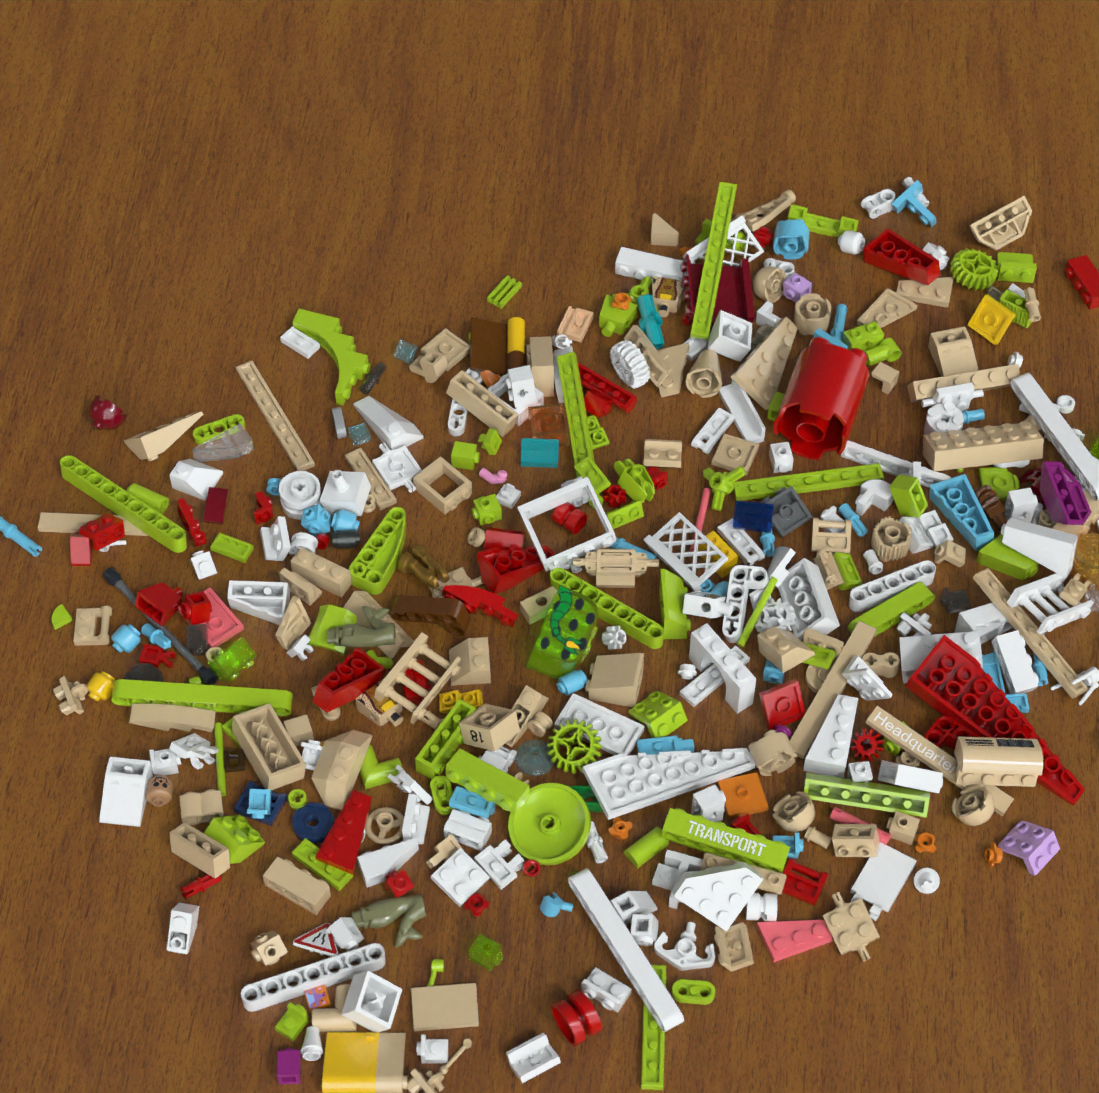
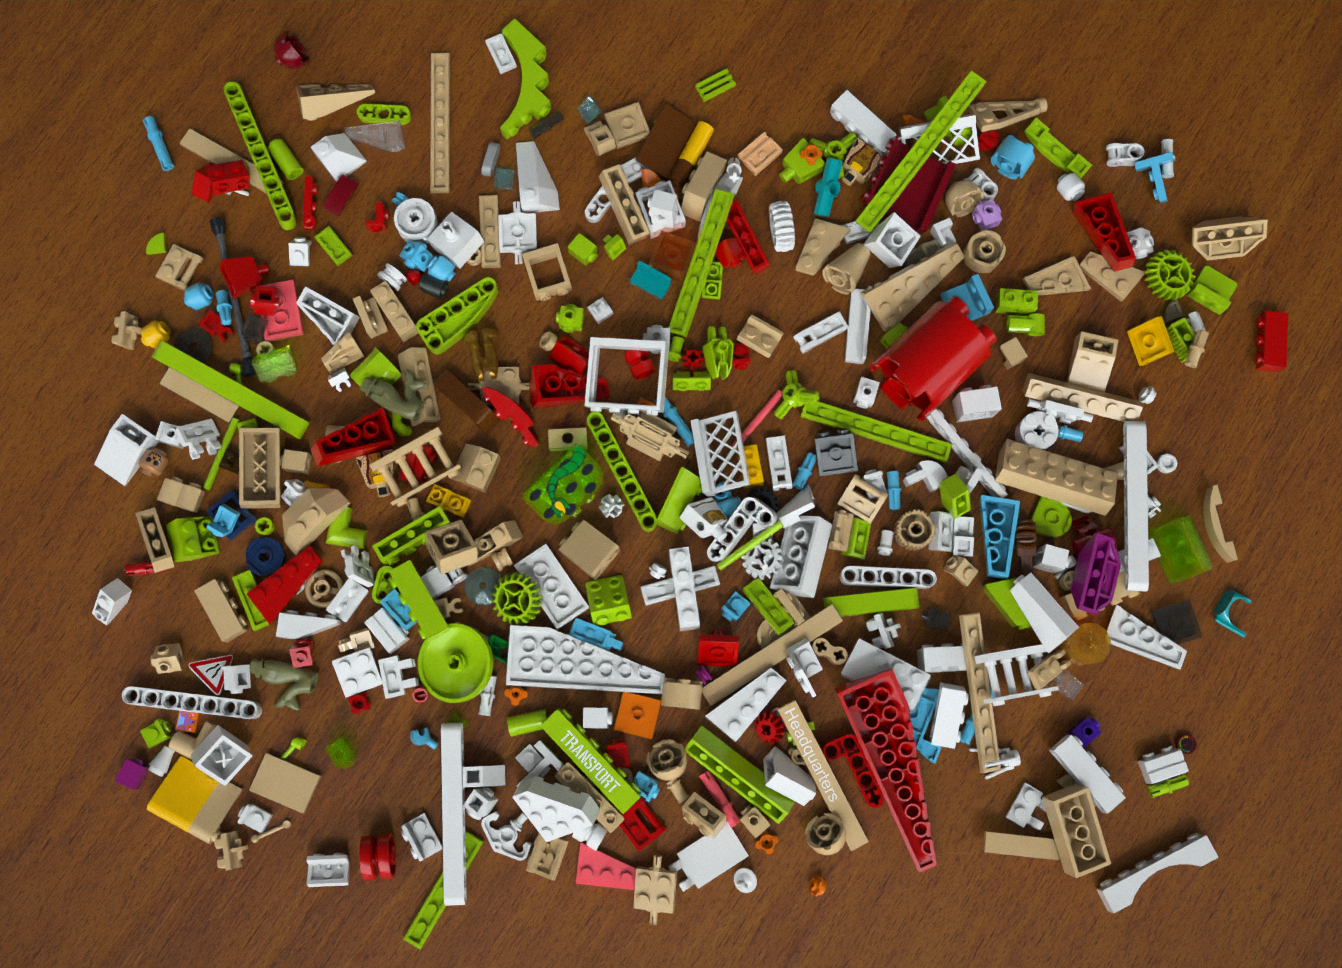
camera: 25 degrees right, 25 degrees up
(276, 540) = (371, 258): white bracket -> none
(497, 478) = (596, 285): bright pink arm -> none
(571, 682) = (551, 532): medium azure brick -> none
(589, 469) = (680, 331): lime plate -> none
(656, 365) = (805, 222): tan slope -> none
(663, 233) = (896, 89): tan slope -> none
(693, 991) = (490, 880): lime plate -> none
(734, 453) = (827, 367): tan plate -> none
(753, 516) = (801, 446): clear blue plate -> none
(783, 648) = (751, 597): tan slope -> none
(839, 322) = (998, 281): medium azure pin -> none
(859, 772) = (746, 752): white bracket -> none
(880, 423) = (976, 404): none -> white brick
(998, 761) = (870, 809): tan brick -> none
(1032, 844) = (854, 892): lavender bracket -> none

